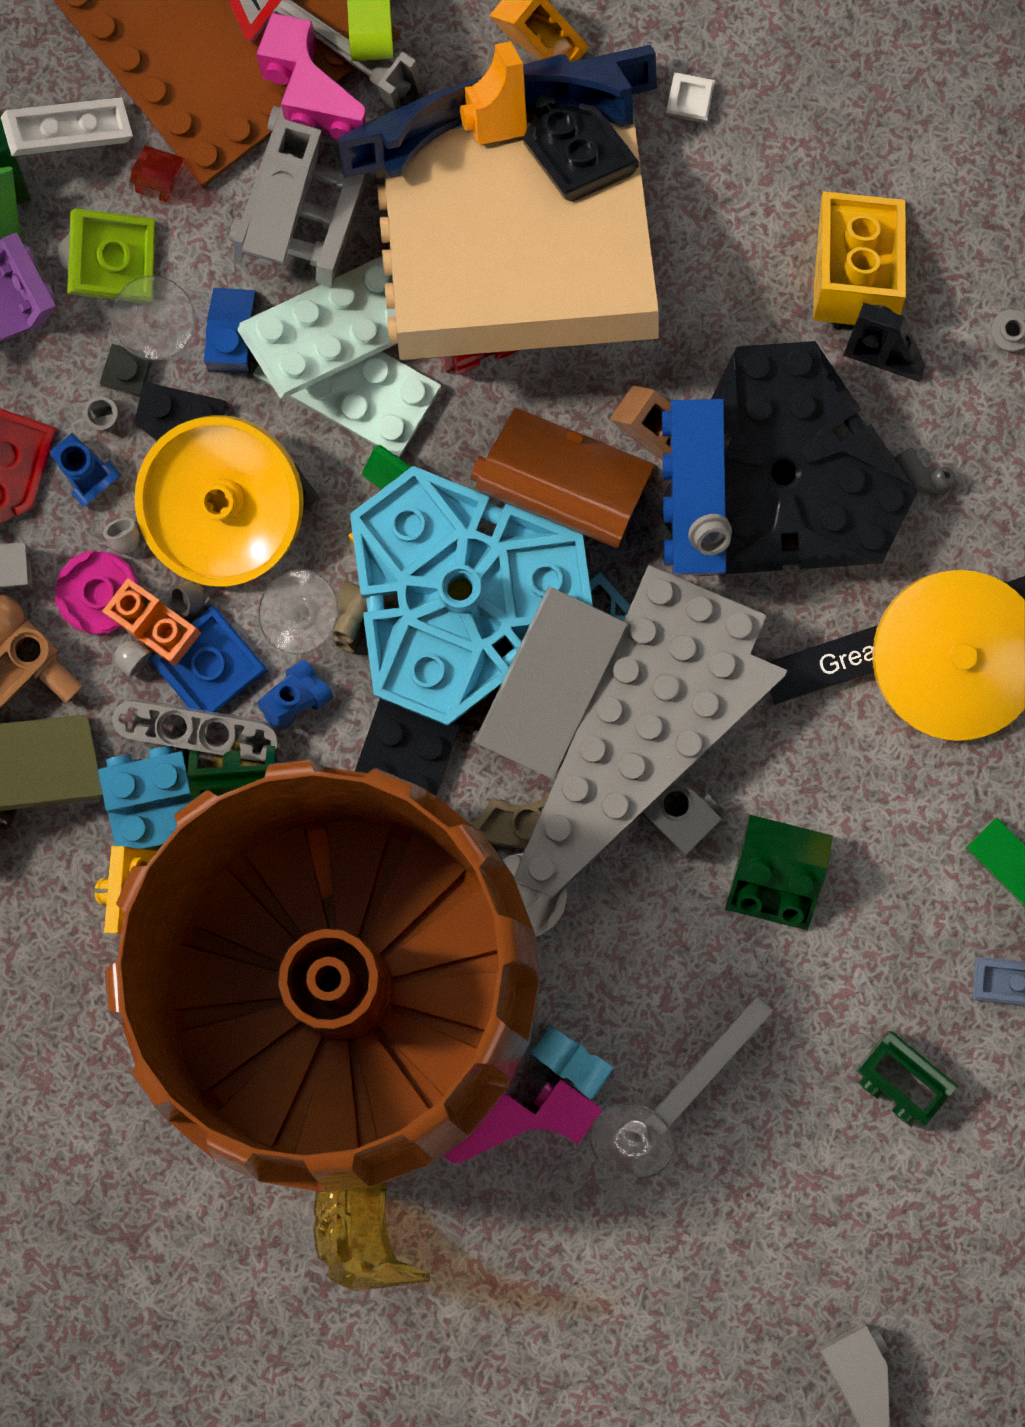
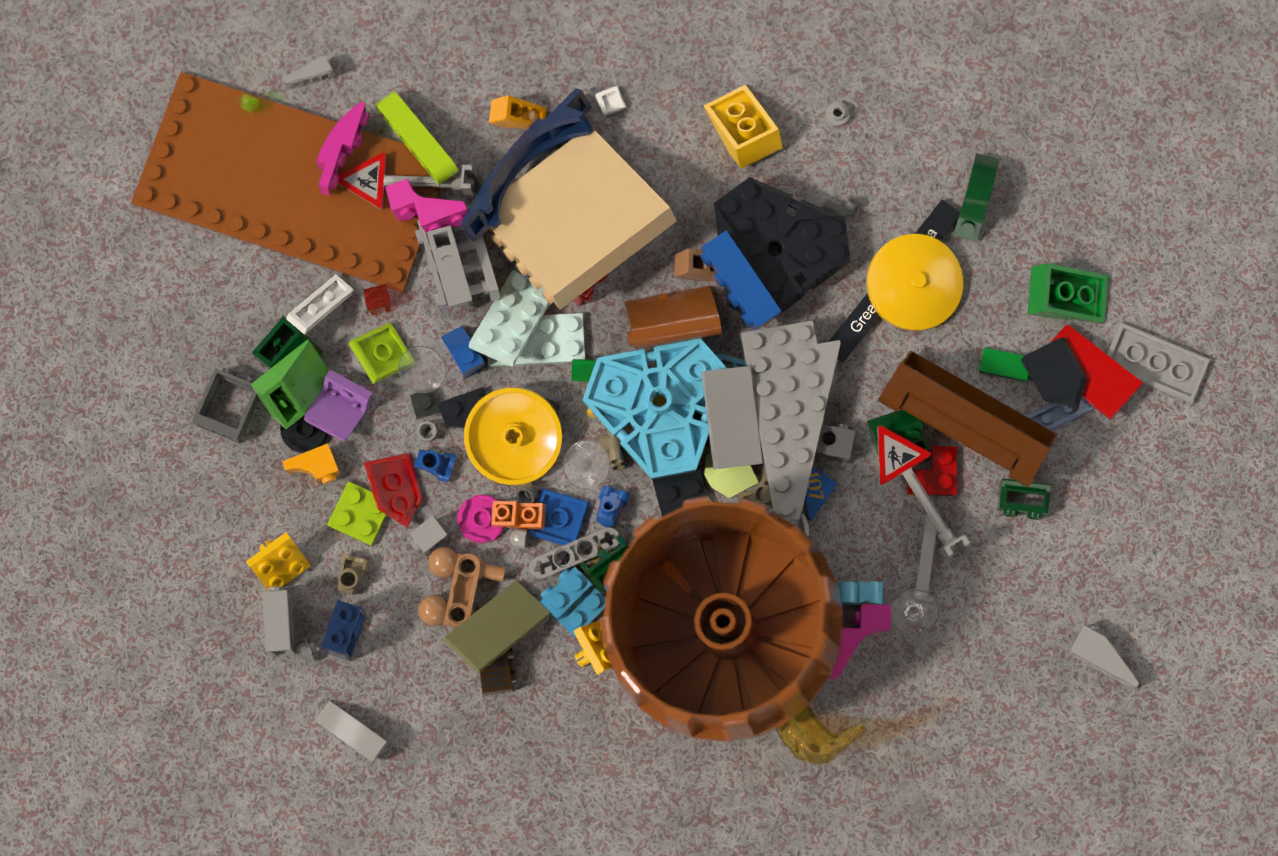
camera: 30 degrees left, 5 degrees down
(122, 535) = (476, 483): light grey hinge -> none
(492, 773) = (729, 480): none -> yellowish green slope
(497, 102) = (523, 160): light orange arch -> none
(577, 148) = (575, 157): black tile -> none
(609, 871) = (817, 492): none -> blue tile
(710, 534) = (762, 297): light grey plate -> none
(755, 900) = (898, 457): none -> light grey piece
(800, 970) = (943, 474): none -> red plate
(885, 342) = (781, 157): black wing -> none
(902, 909) = (969, 416): none -> reddish brown piece

